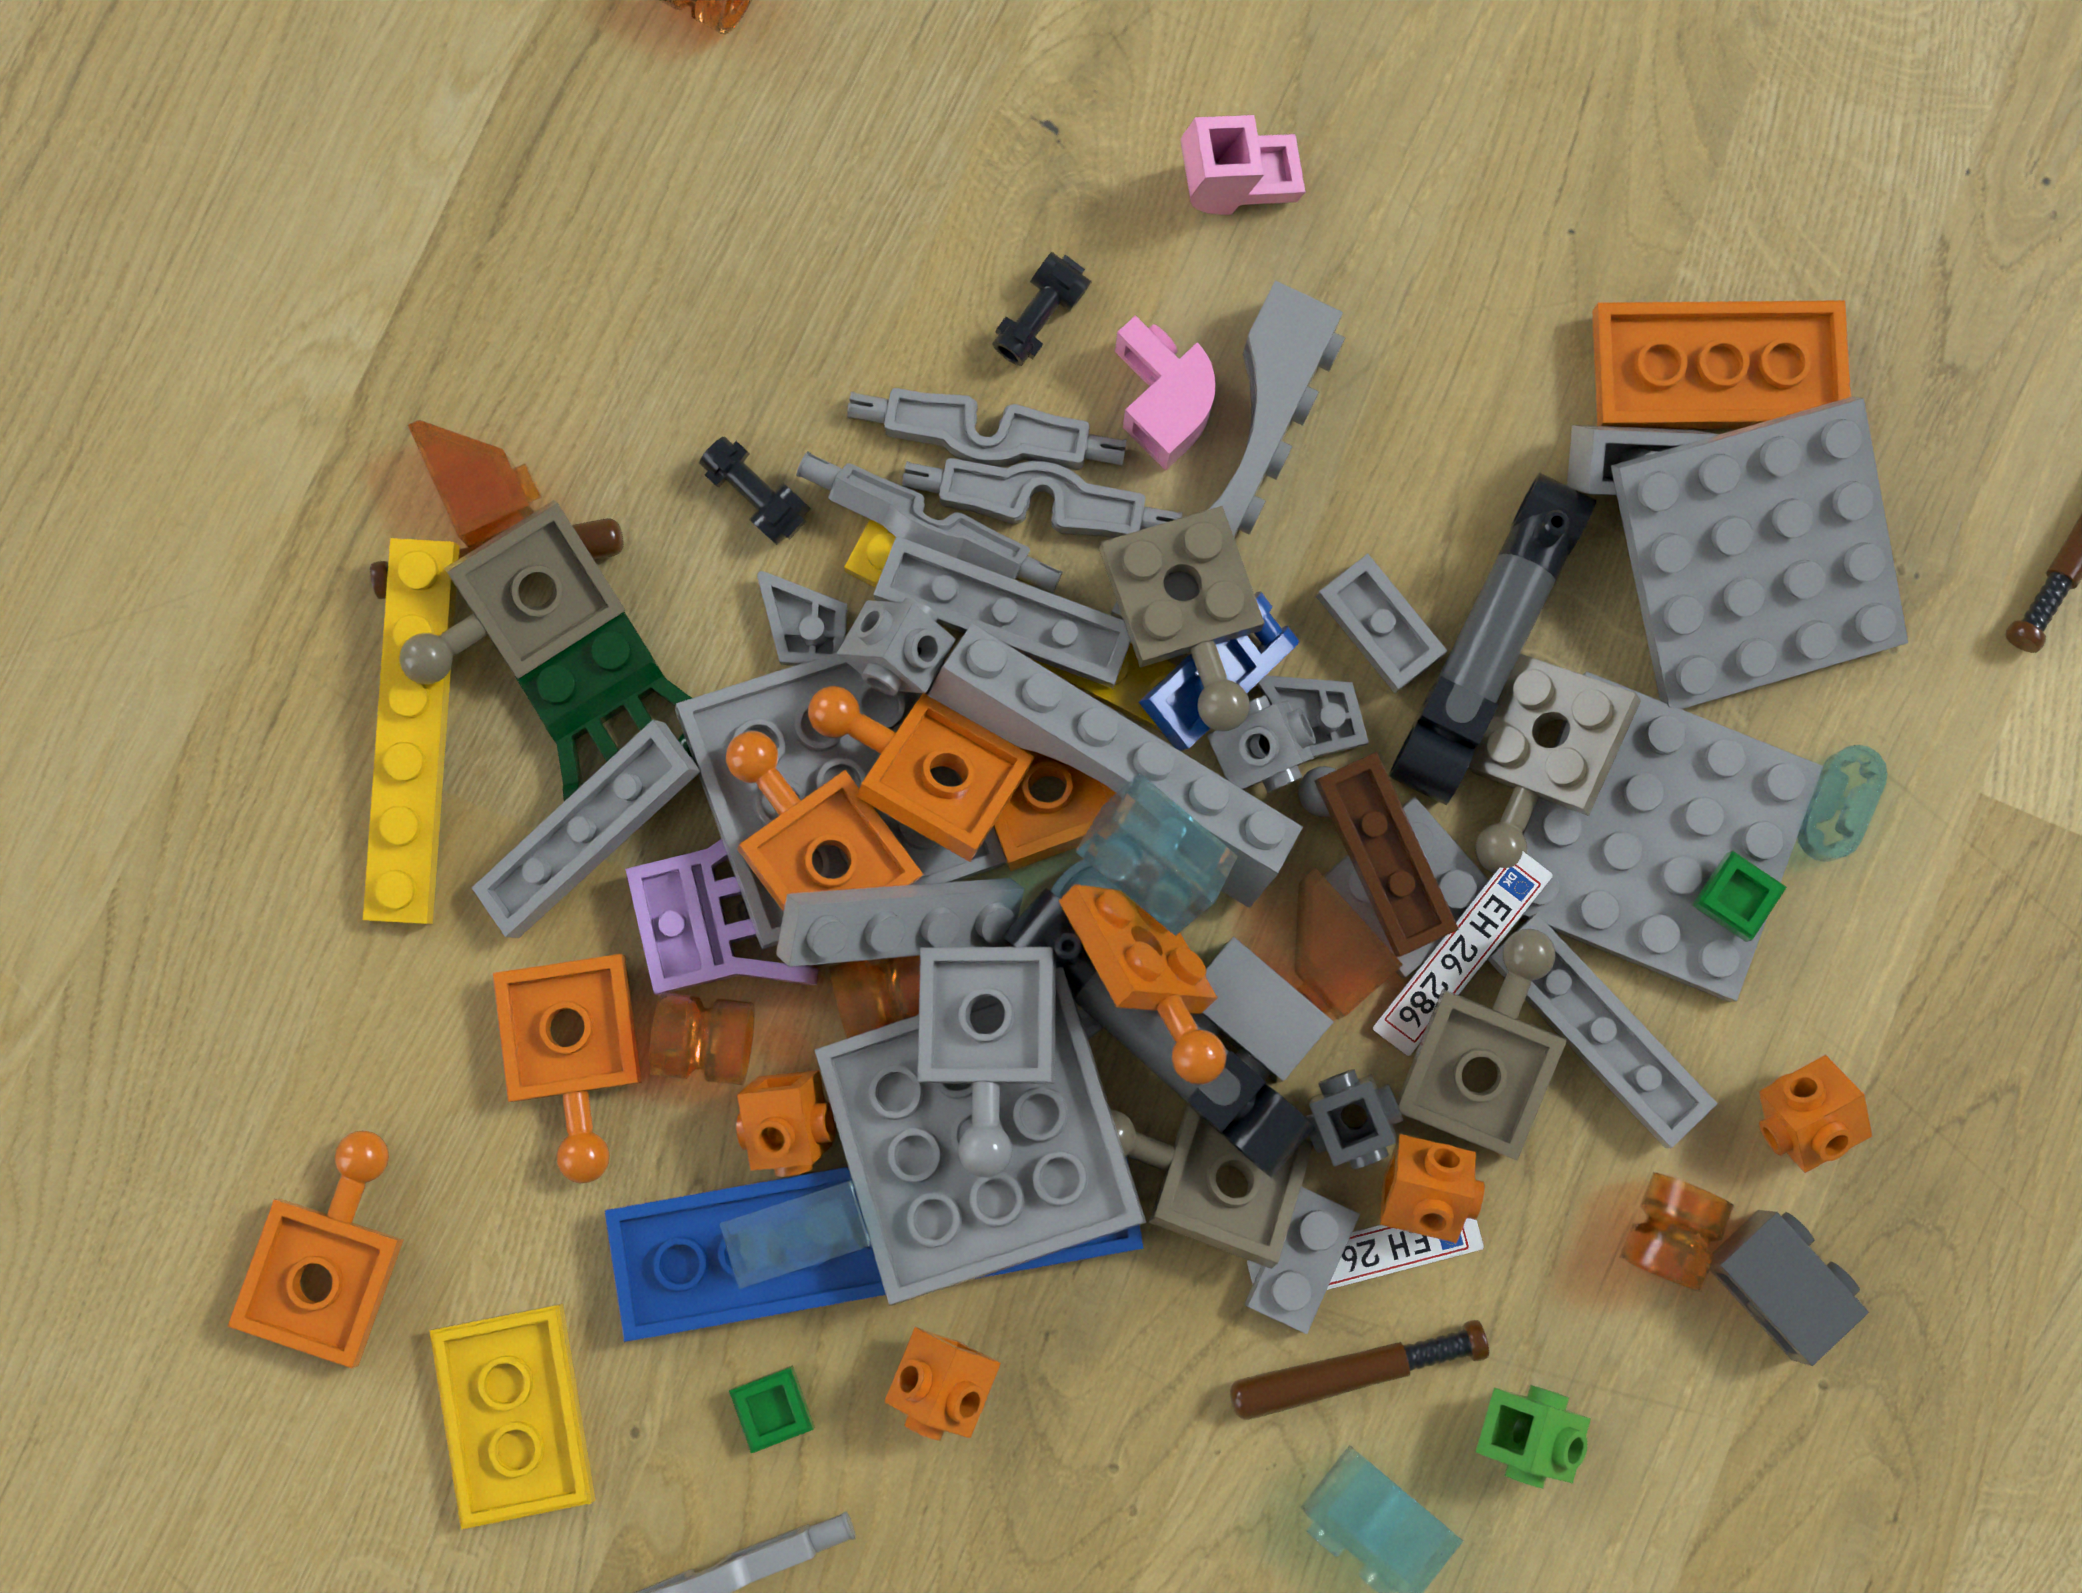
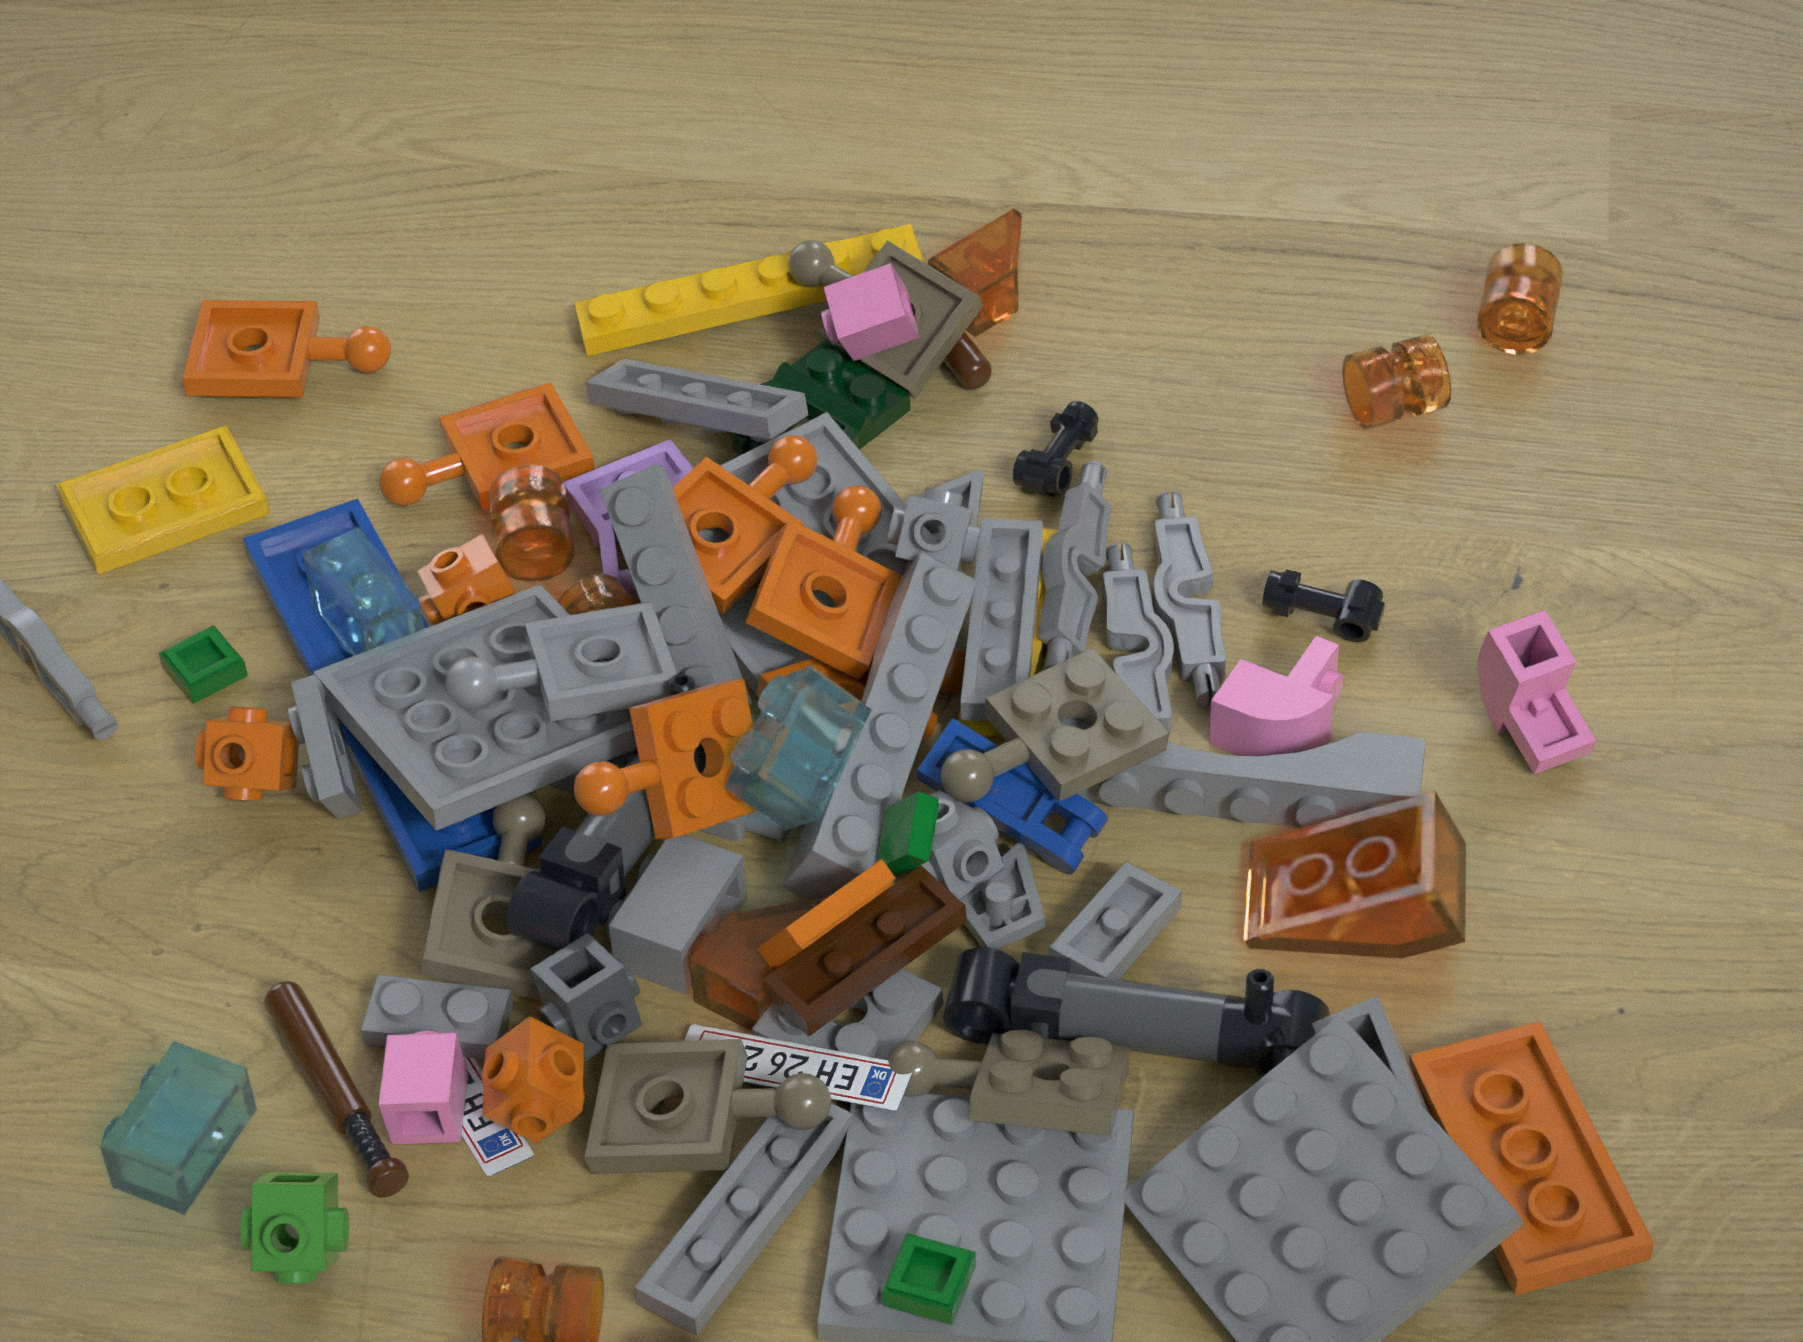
camera: 80 degrees right, 35 degrees down
(543, 620) = (869, 312): none -> bright pink brick
(780, 133) = (1387, 384): none -> clear orange wheel
(986, 1307) = (330, 772): none -> light grey plate
(1286, 781) = (908, 833): none -> green tile
(1354, 879) = (827, 914): none -> orange tile
(1398, 402) = (1361, 884): none -> clear orange slope
(1398, 1289) = (423, 1088): none -> bright pink brick

